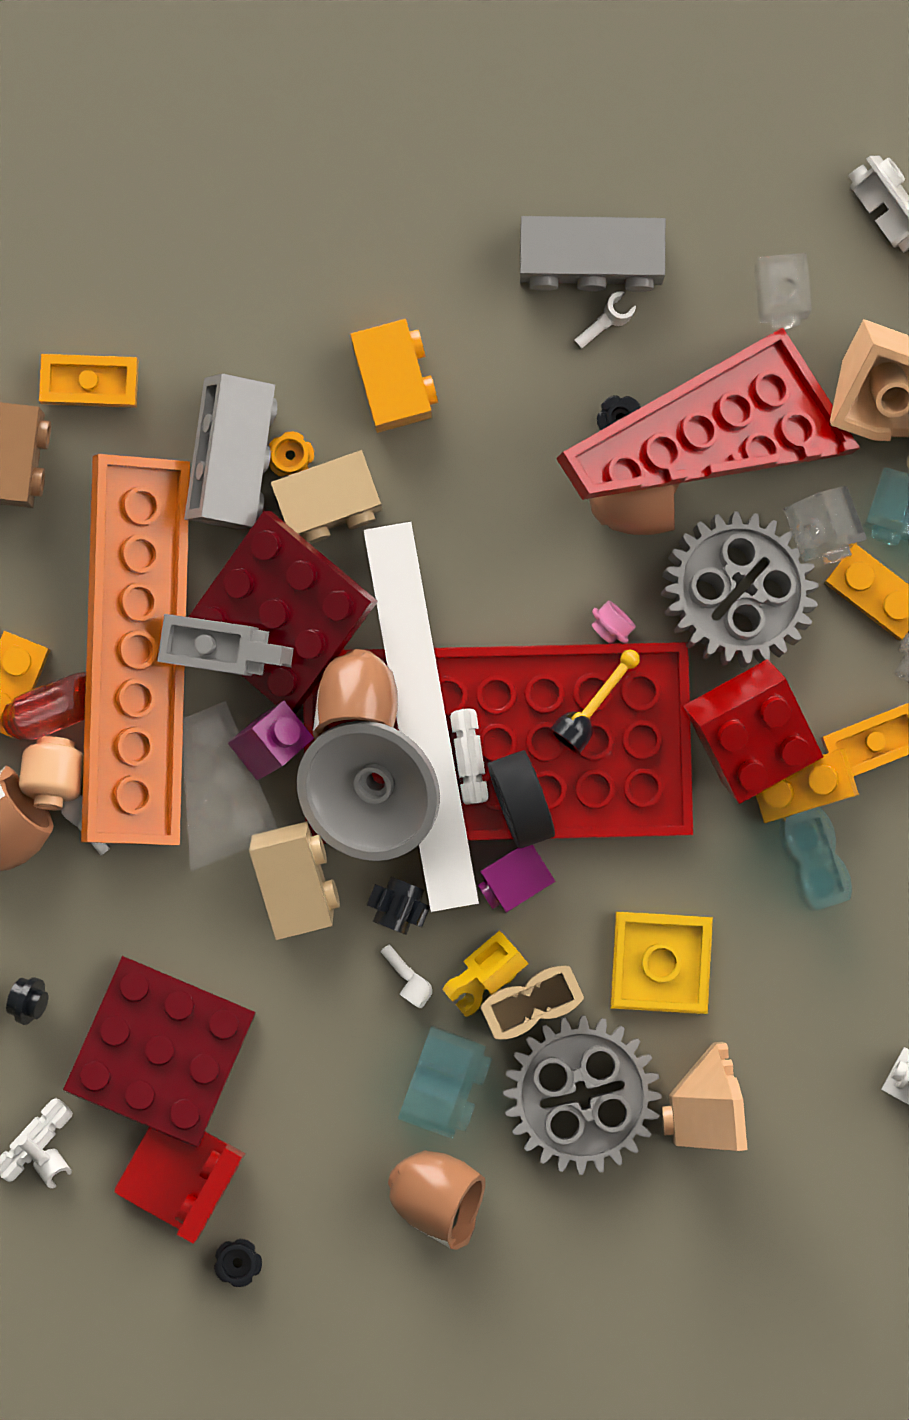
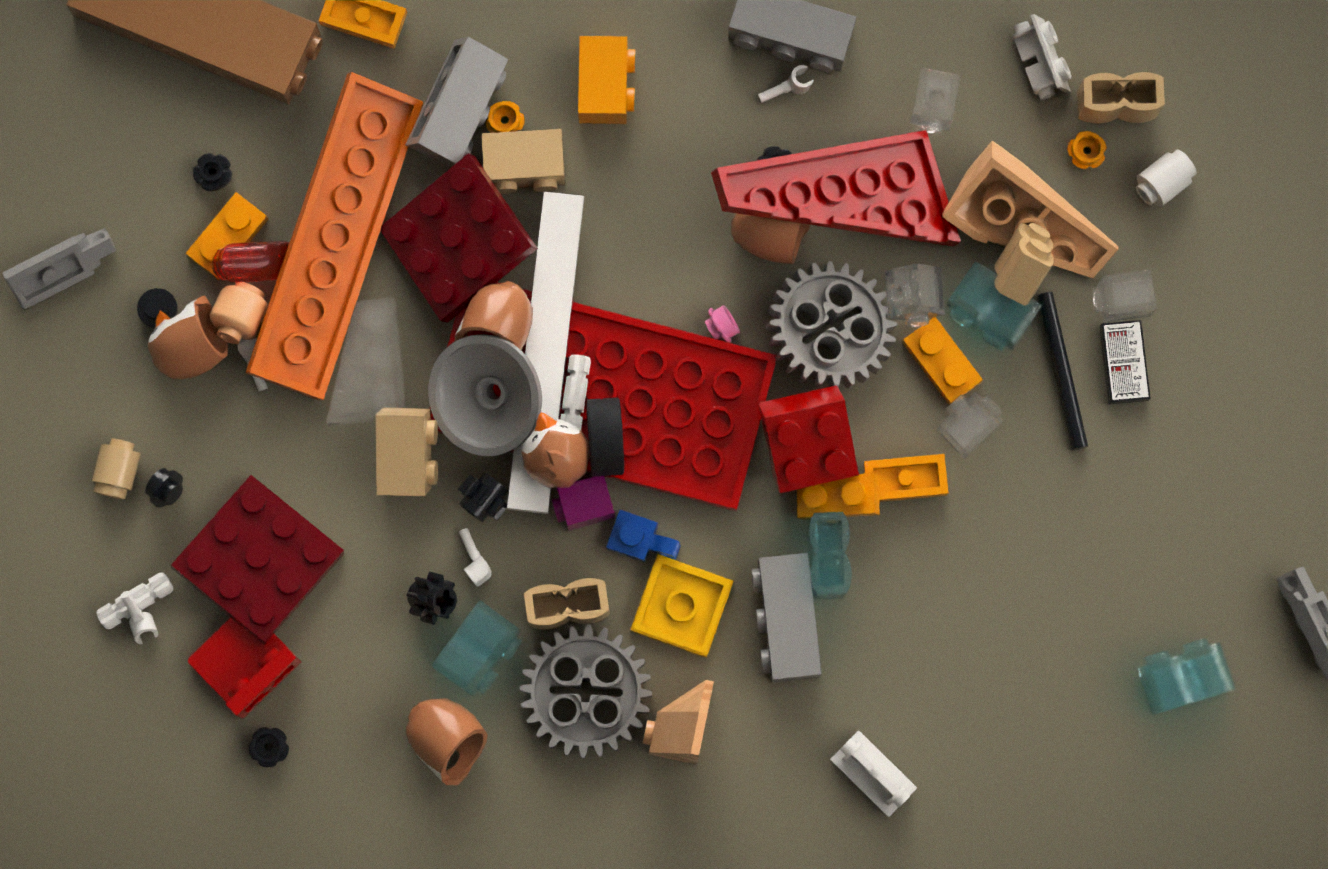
camera: 15 degrees right, 5 degrees down
(219, 646) = (401, 249): light grey hinge -> none
(270, 740) = (420, 336): magenta brick -> none
(374, 1039) = (432, 598): none -> black gear
(470, 835) = (555, 453): none -> nougat piece
(488, 968) = (540, 568): yellow plate -> none
(574, 727) = (666, 396): hinge -> none
(585, 899) = (636, 537): none -> blue plate
(787, 943) = (787, 618): none -> light grey brick

